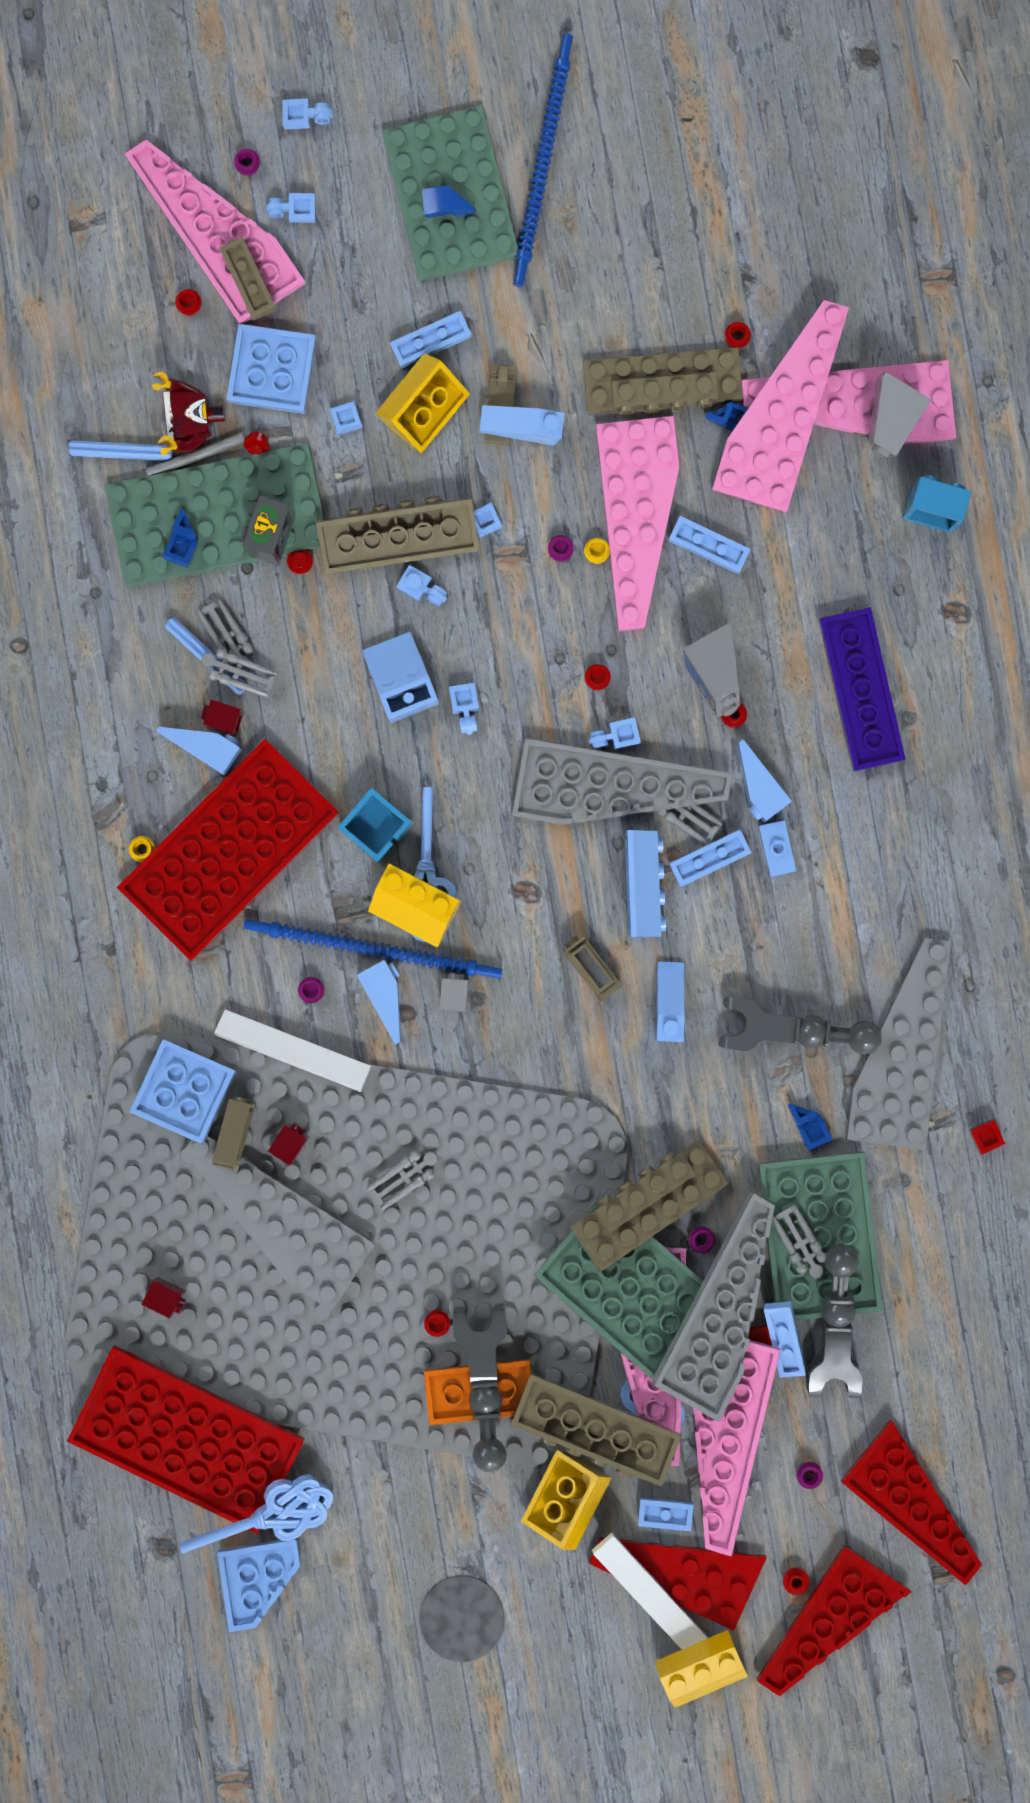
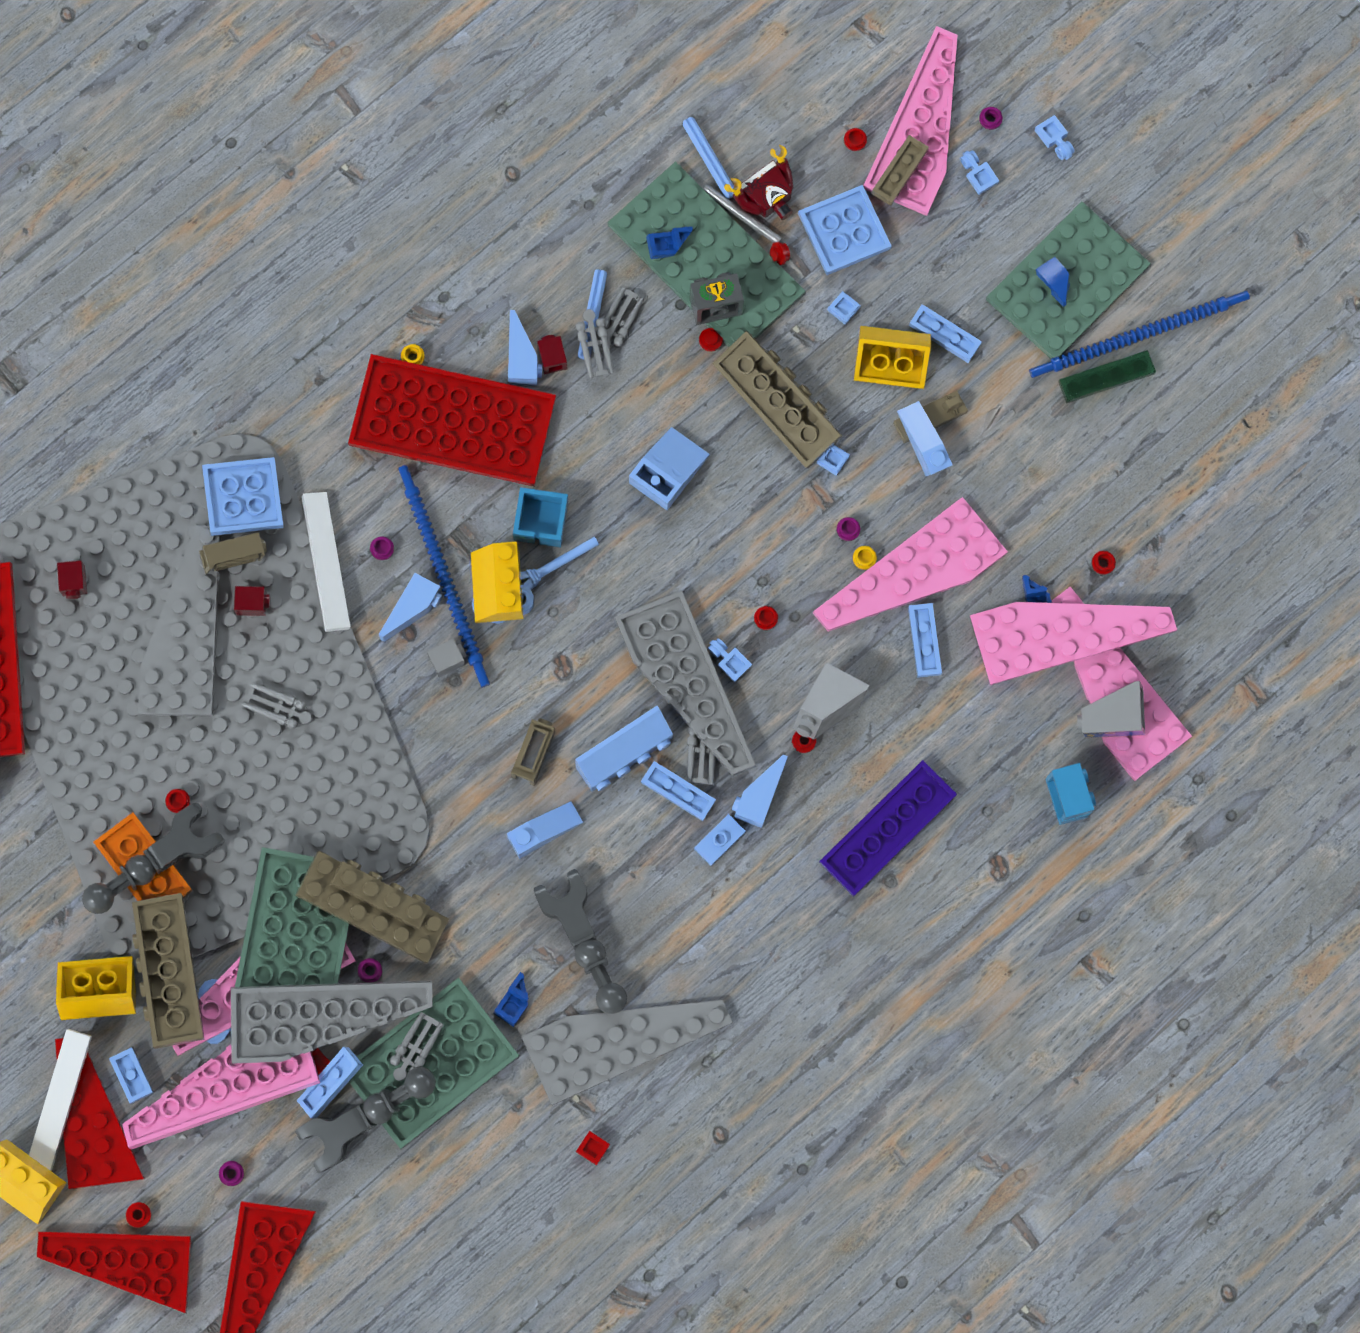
camera: 50 degrees right, 10 degrees down
(416, 583) = (749, 437): light blue plate -> none
(464, 701) = (681, 526): light blue plate -> none
(565, 217) = (1107, 376): none -> clear green plate
(663, 381) = (1029, 528): dark tan plate -> none

